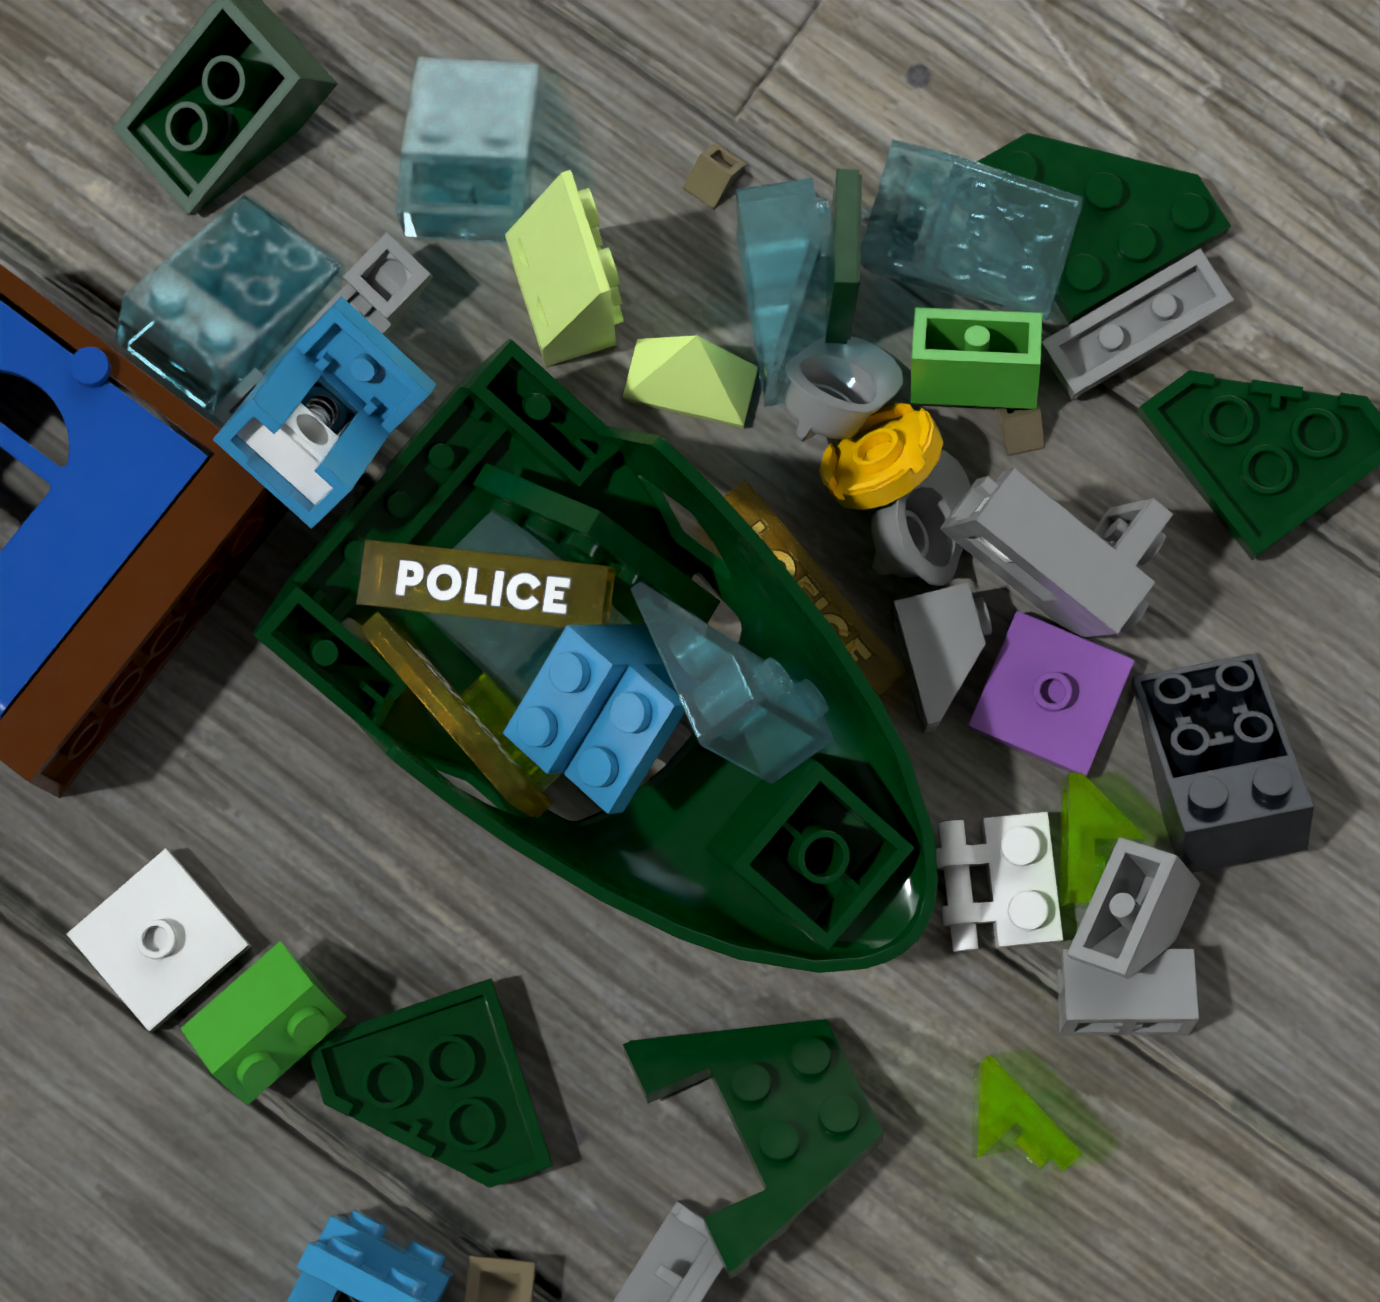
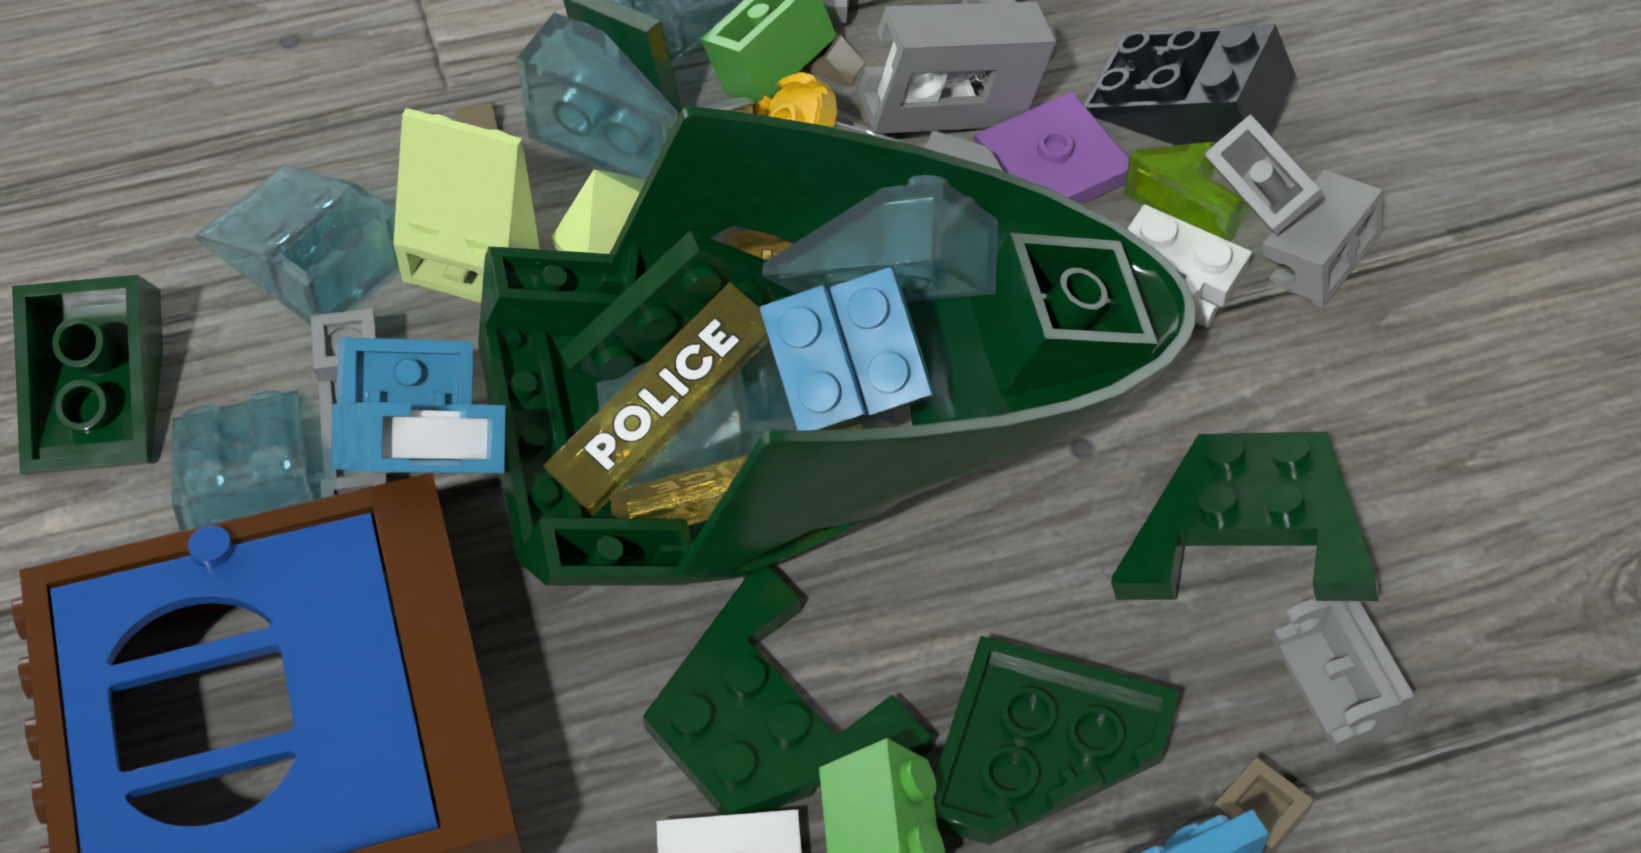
camera: 55 degrees left, 25 degrees down
(293, 853) = (742, 726): none -> dark green wing
(1004, 1104) = (1365, 357): clear neon green slope -> none

